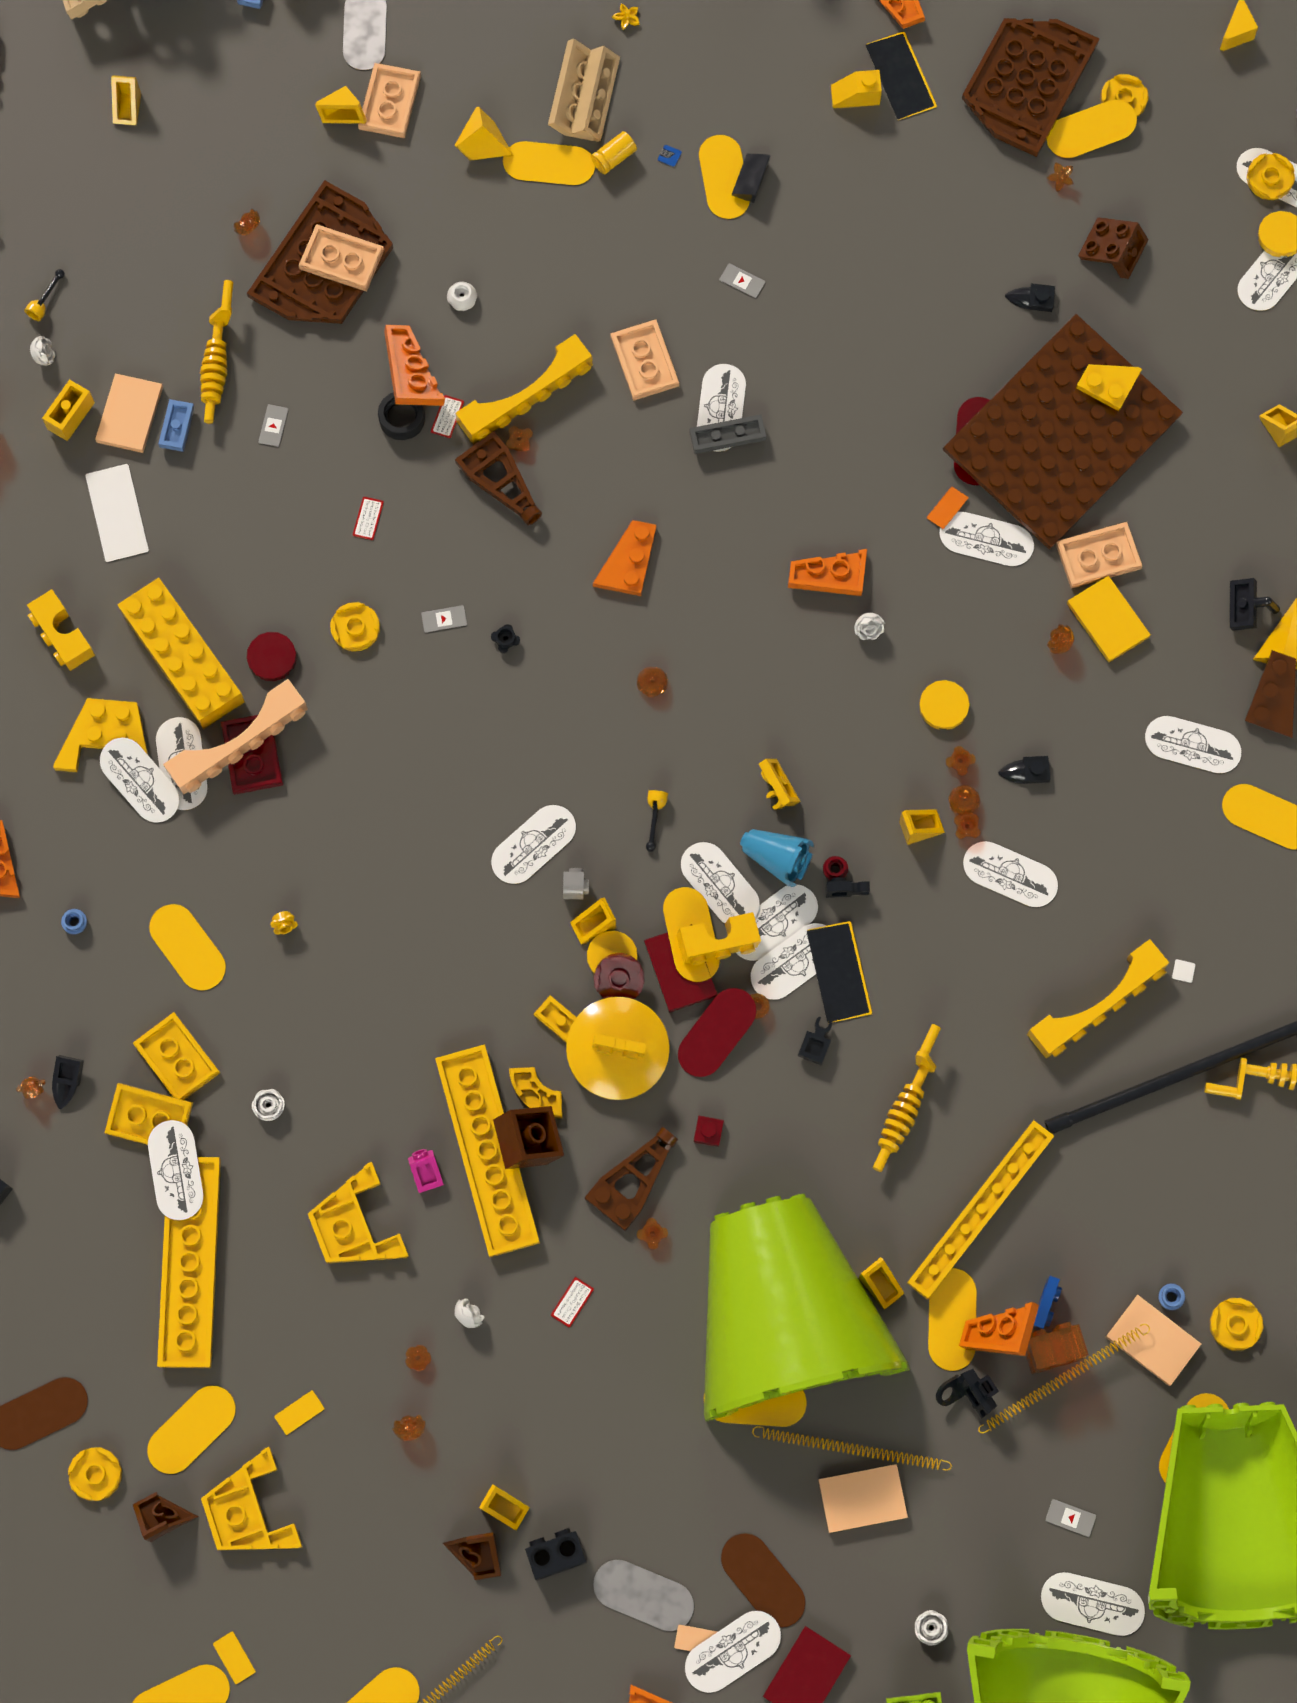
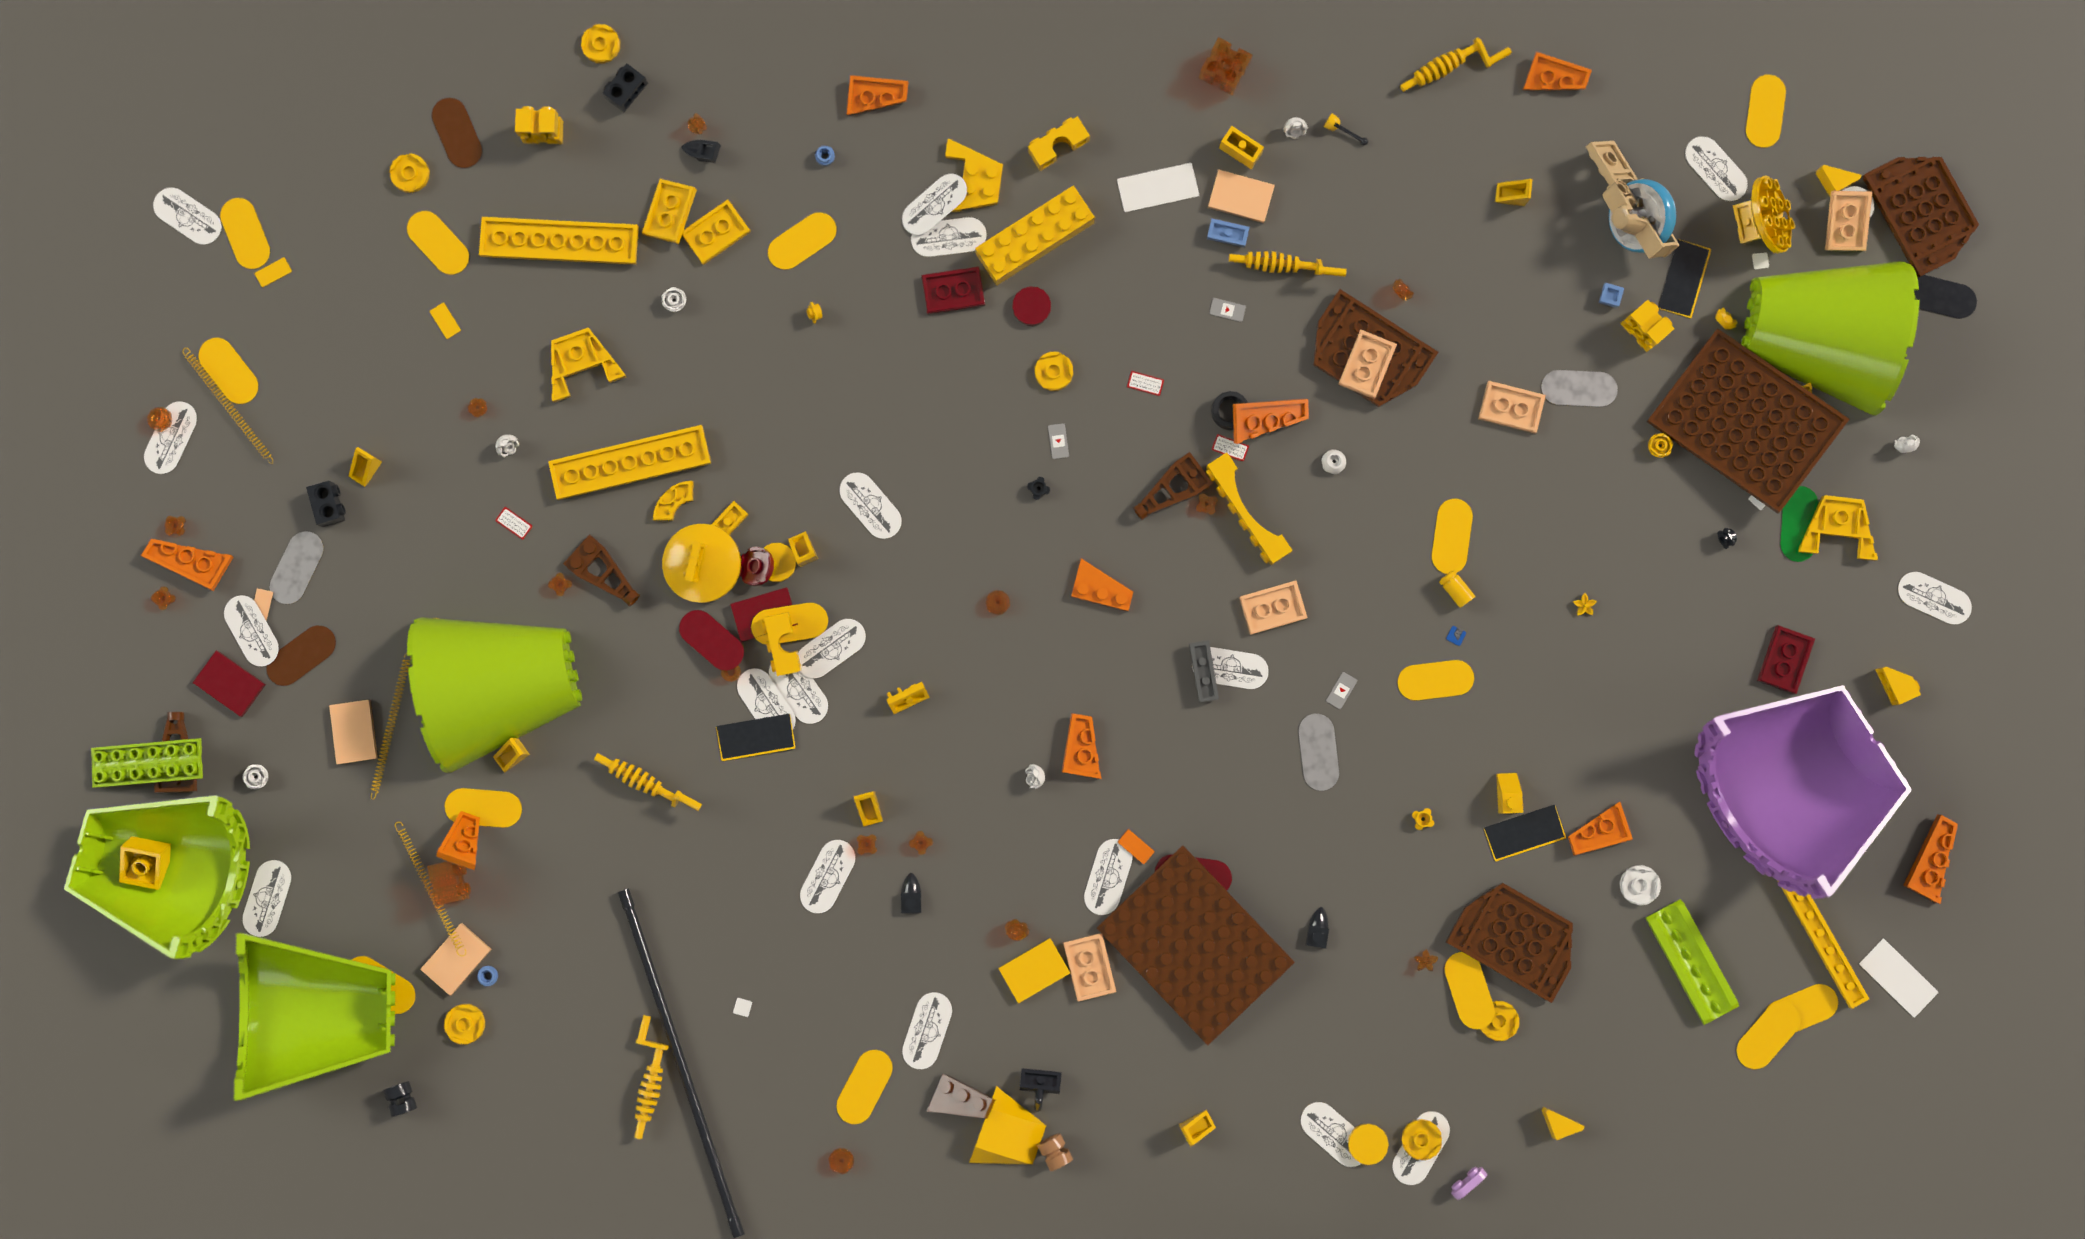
camera: 90 degrees right, 10 degrees up
(32, 1291) = (539, 125): none -> yellow brick
(159, 1516) = (373, 218): reddish brown slope -> none
(175, 1170) = (626, 230): white sticker -> none
(194, 766) = (984, 309): light nougat arch -> none
(236, 1513) = (371, 274): yellow wing -> none
(340, 108) = (1503, 366): yellow slope -> none
(409, 1427) = (425, 399): clear orange plate -> none
(425, 1170) = (617, 415): dark pink bracket -> none
(477, 1554) = (333, 448): reddish brown slope -> none
(482, 138) = (1474, 481): yellow slope -> none
(528, 1137) = (632, 492): reddish brown brick -> none
(574, 884) = (832, 535): light grey plate -> none
(584, 91) = (1515, 566): tan slope -> none
(656, 801) = (898, 601): hinge -> none
(708, 1131) = (636, 630): dark red plate -> none
(751, 176) = (1433, 701): black slope -> none
(779, 854) = (848, 693): dark azure cone -> none
(815, 1044) = (697, 715): black plate -> none
(818, 304) = (1318, 752): none -> flat silver sticker
(835, 861) = (832, 734): dark red plate -> none
(841, 888) = (820, 741): black plate -> none
(896, 179) = (1428, 822): none -> yellow plate
(944, 705) = (967, 832): yellow tile -> none
(964, 807) = (885, 837): clear orange plate -> none
(977, 1390) = (424, 820): black piece -> none
(980, 1209) = (562, 834): yellow plate -> none
(1050, 1293) = (494, 883): blue plate -> none
(1053, 1033) = (695, 902): yellow arch -> none
(1070, 1517) = (330, 886): light grey sticker -> none
(1108, 383) = (1231, 985): yellow wing -> none
(1115, 243) = (1361, 1000): reddish brown bracket -> none

